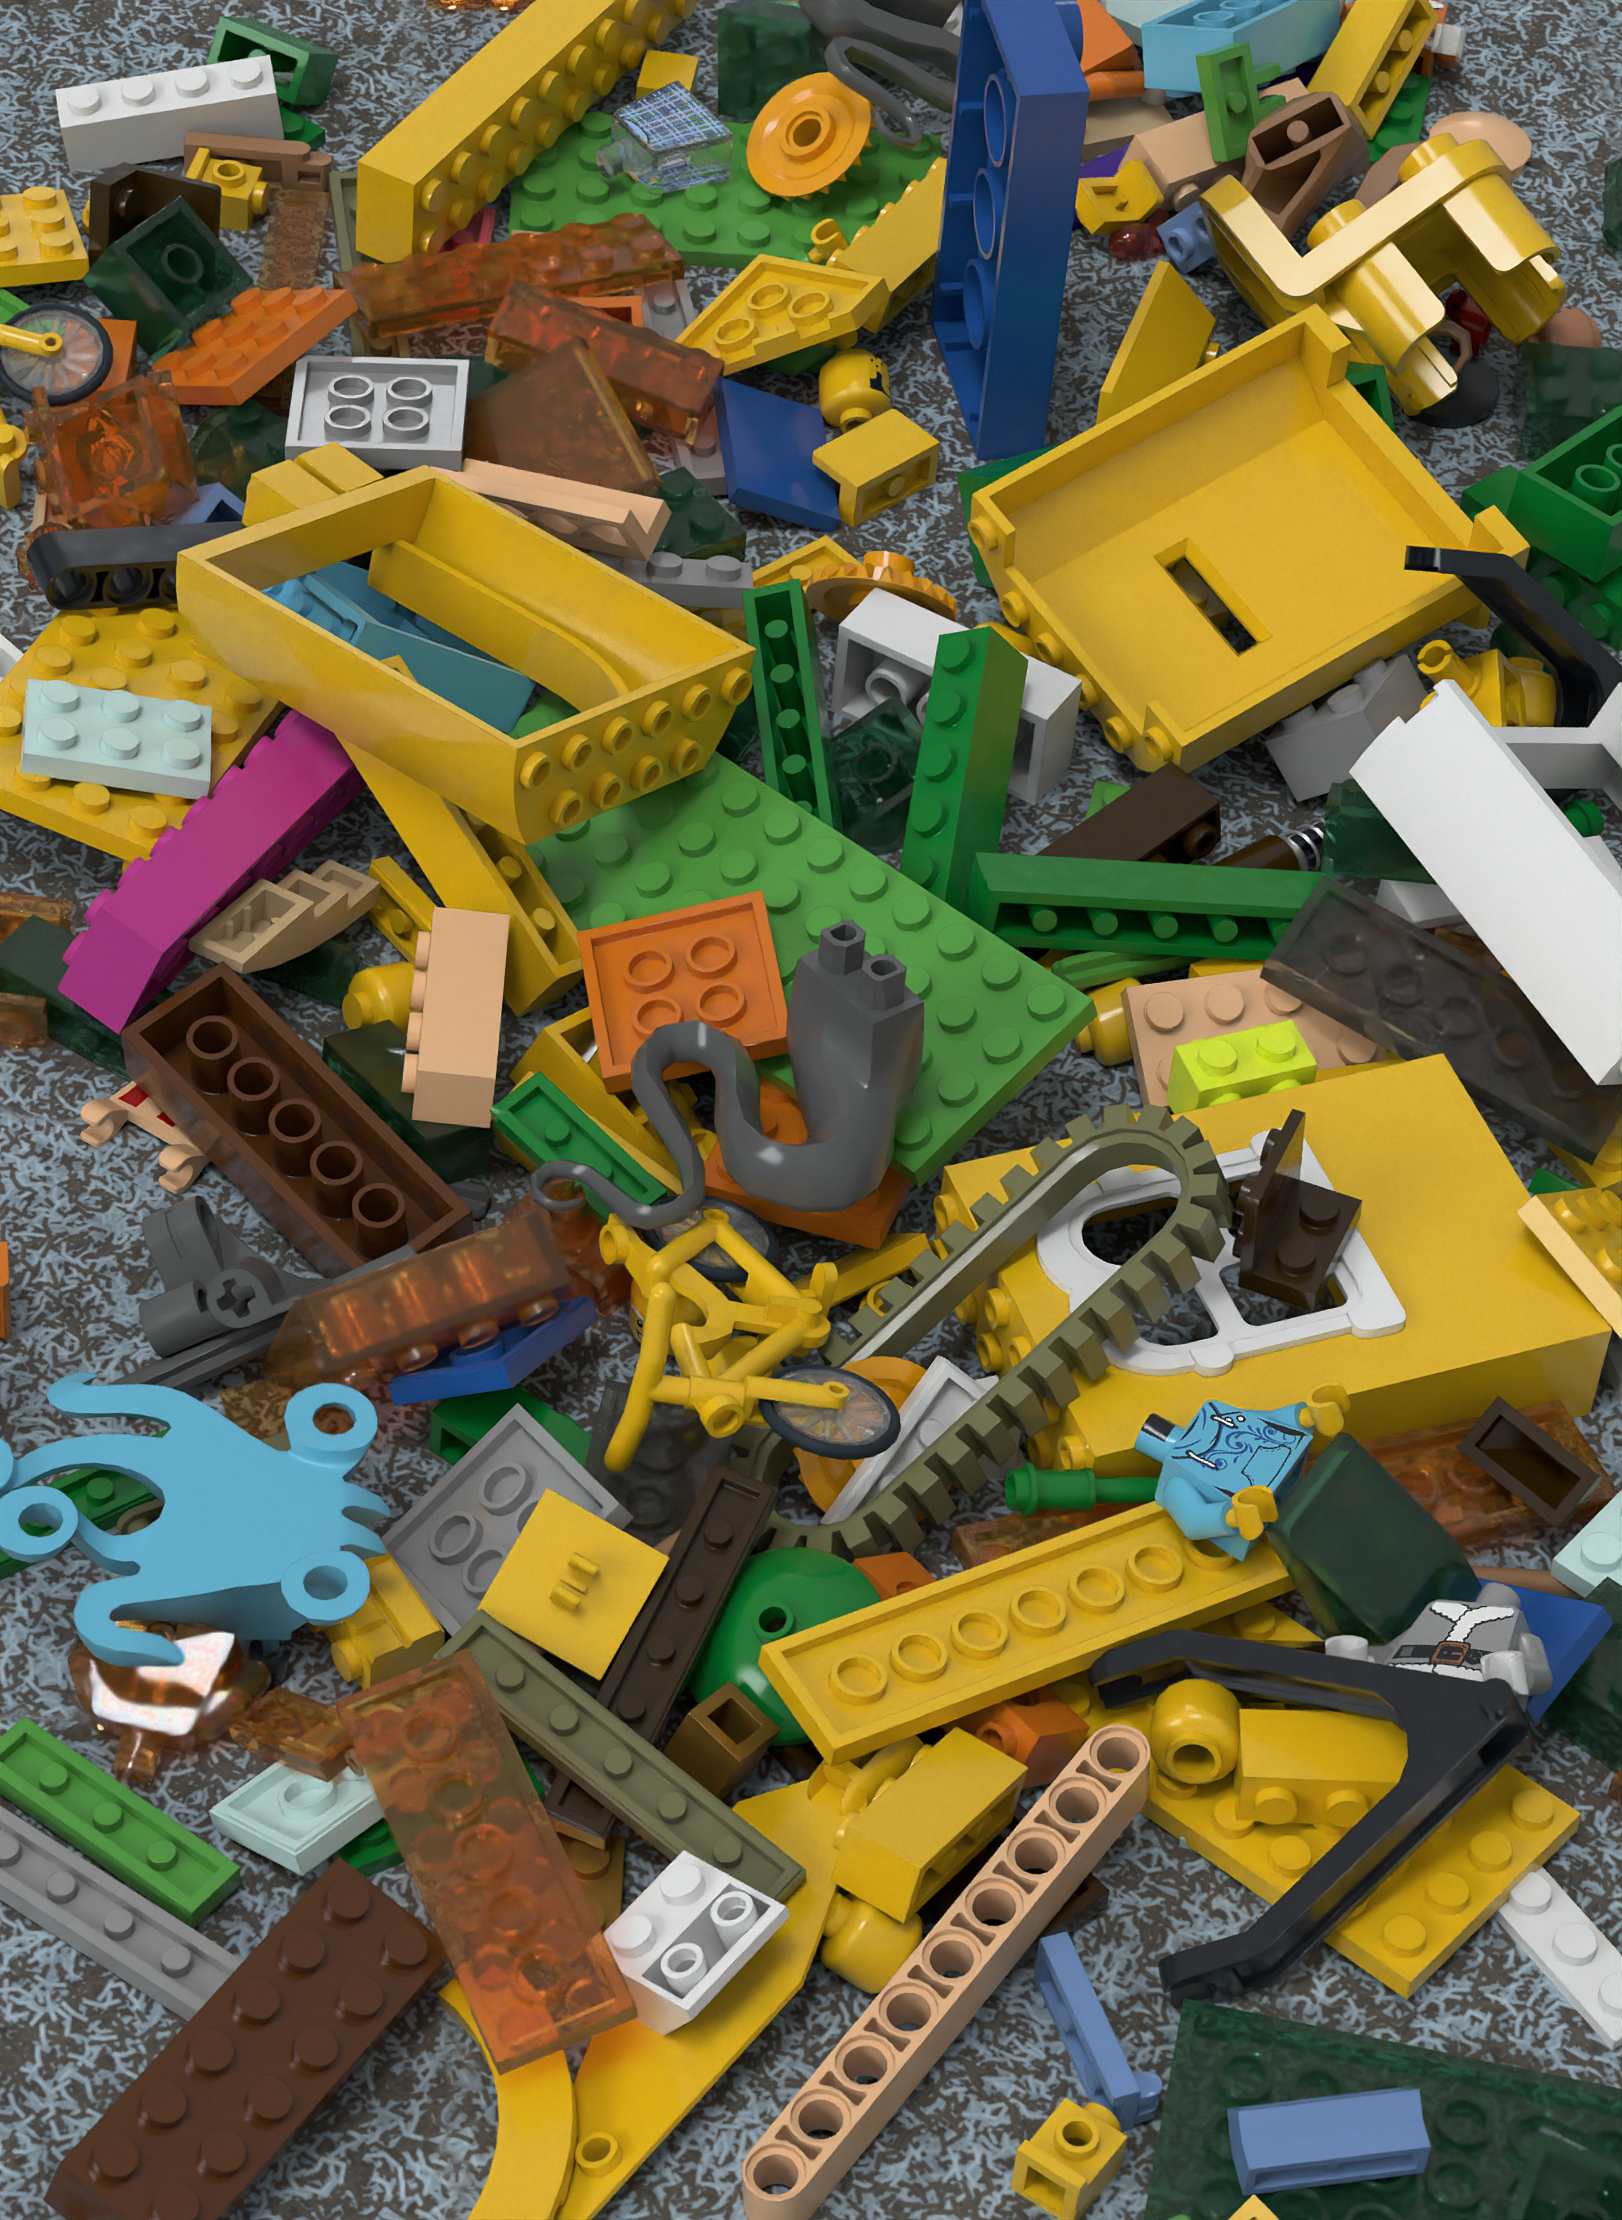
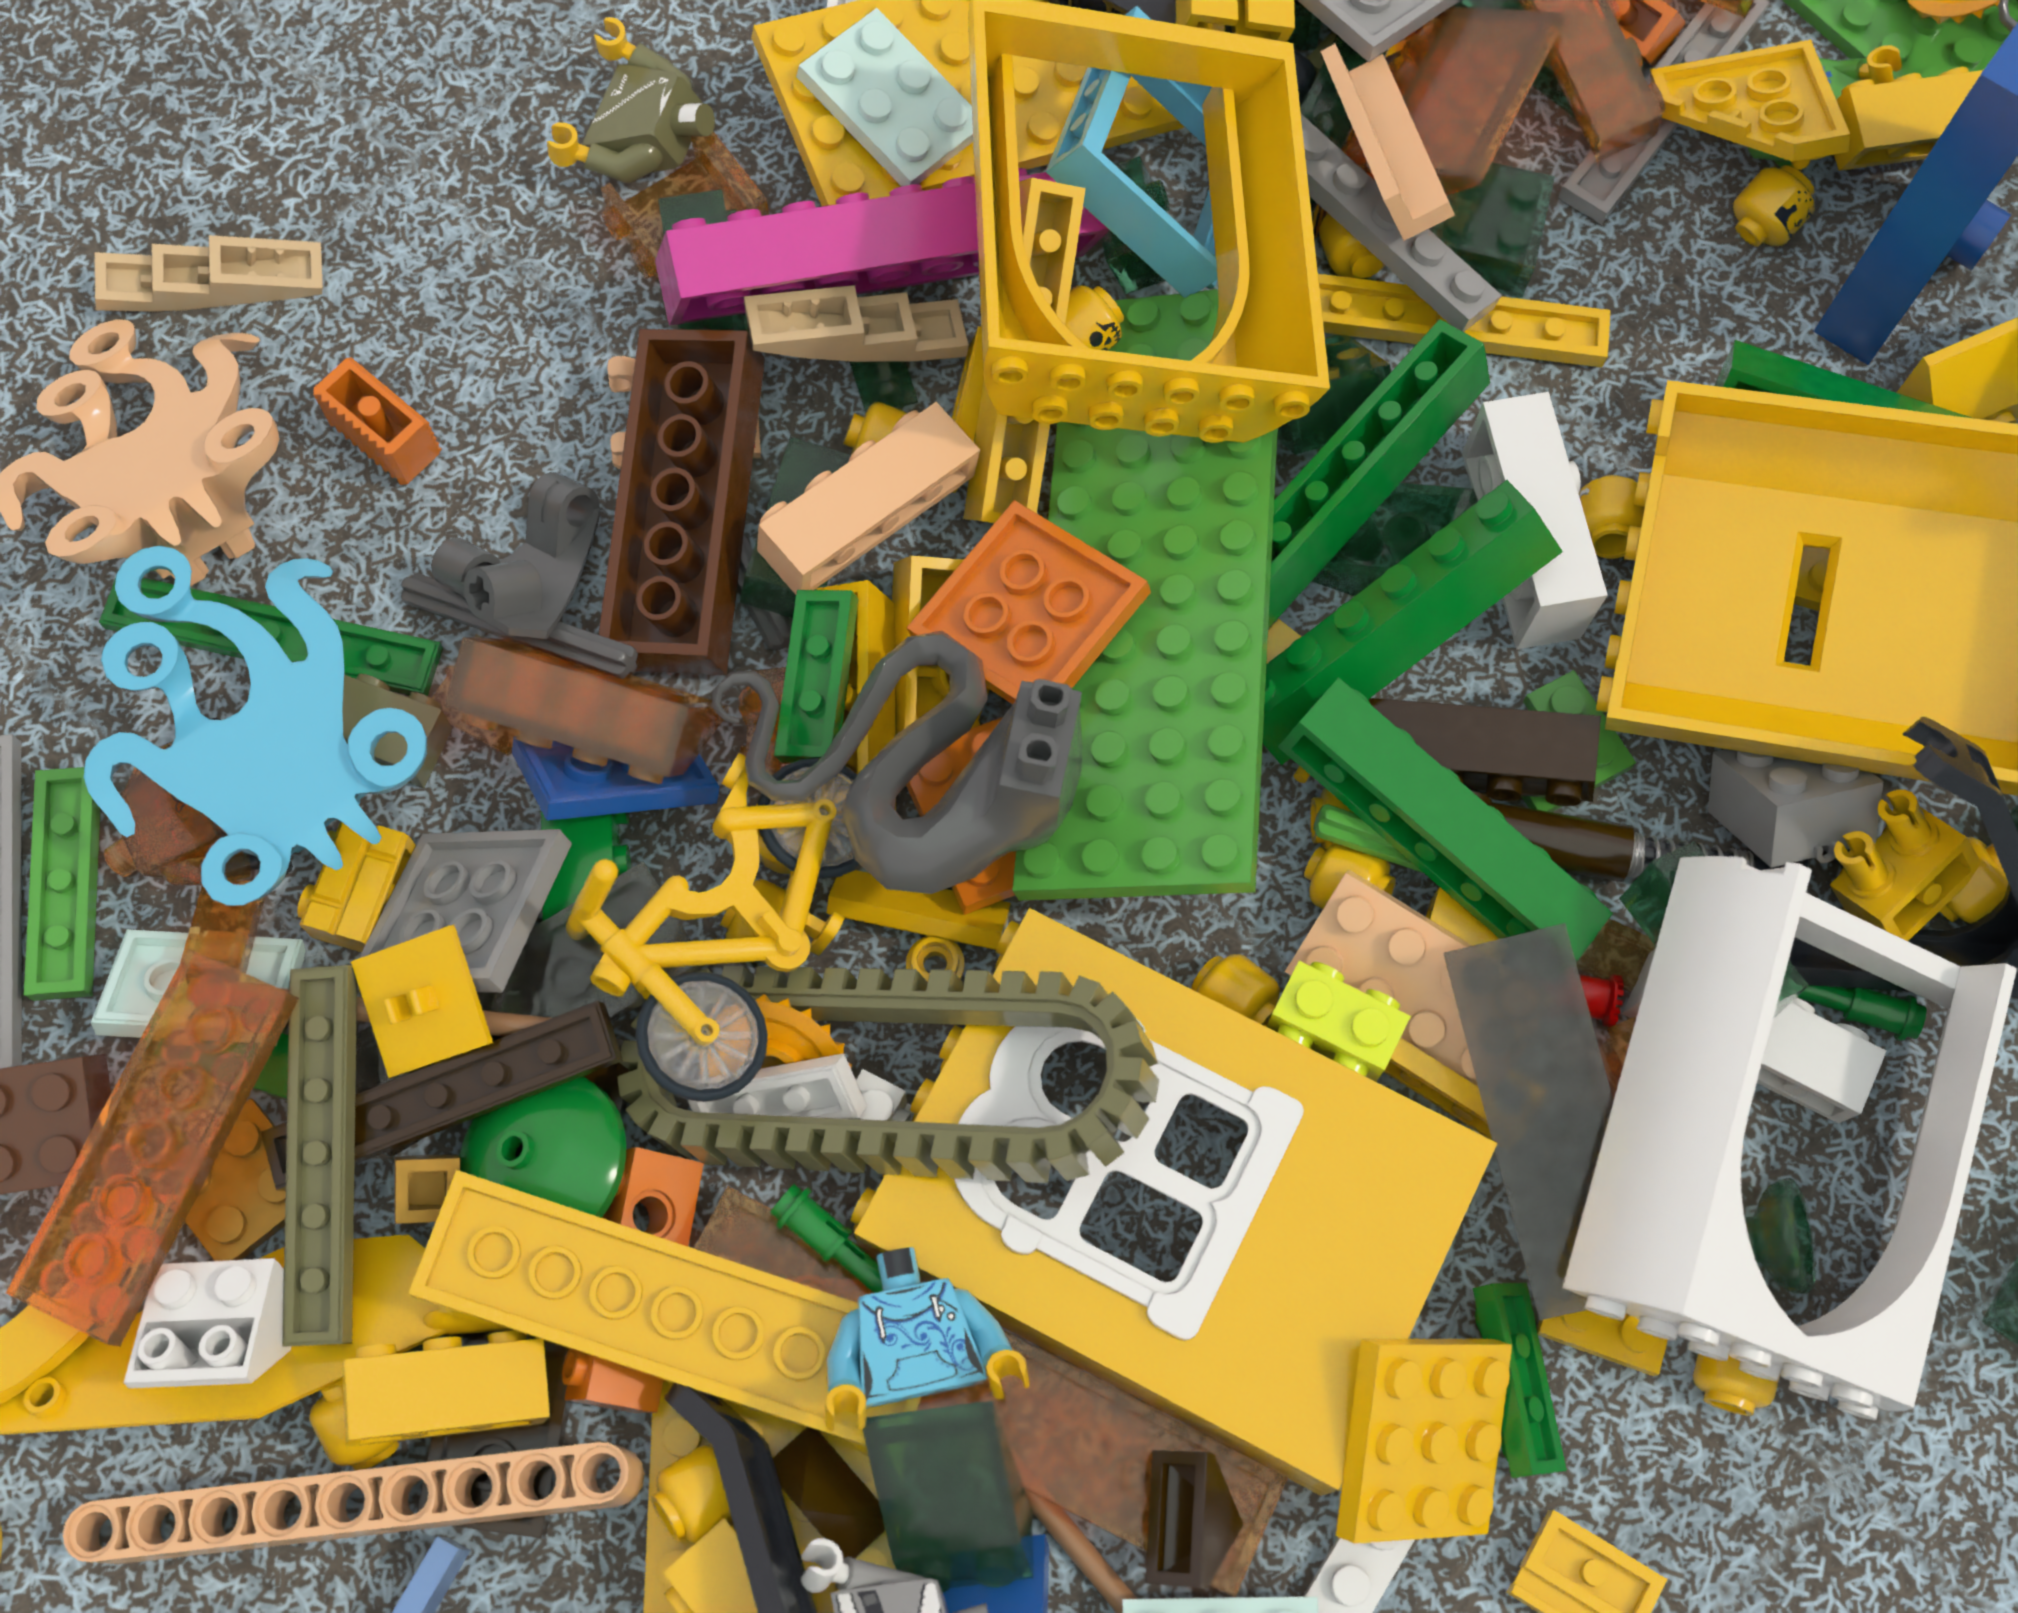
camera: 50 degrees right, 25 degrees up
(769, 456) = (1651, 215): blue tile -> none
(842, 588) = (1573, 395): light orange gear -> none
(879, 465) = (1716, 280): yellow panel -> none
(1290, 1226) = (1180, 1194): dark brown bracket -> none

